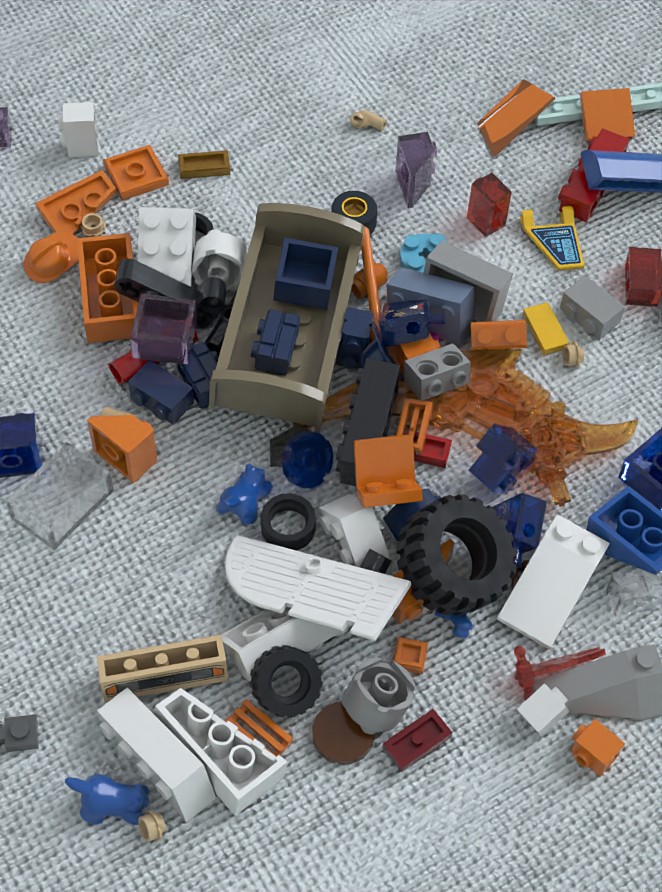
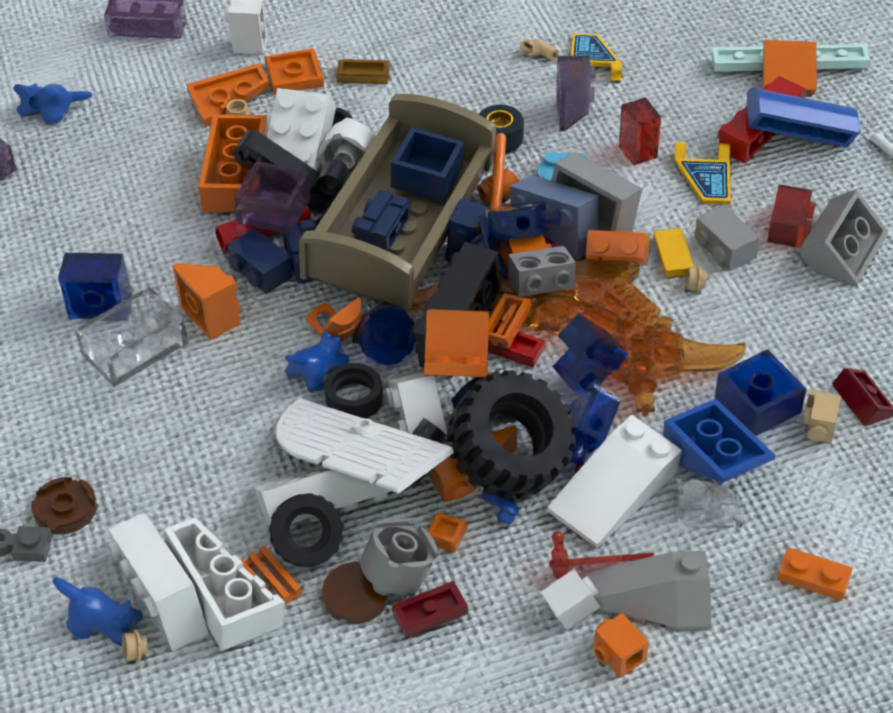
camera: 15 degrees right, 10 degrees down
(41, 686) = (64, 505): none -> reddish brown tile
(51, 257) = (186, 133): orange piece -> none
(163, 667) = (172, 500): tan brick -> none
(259, 454) = (341, 323): none -> orange piece
(418, 117) = (598, 52): none -> flag
(513, 115) = (690, 58): orange sticker -> none

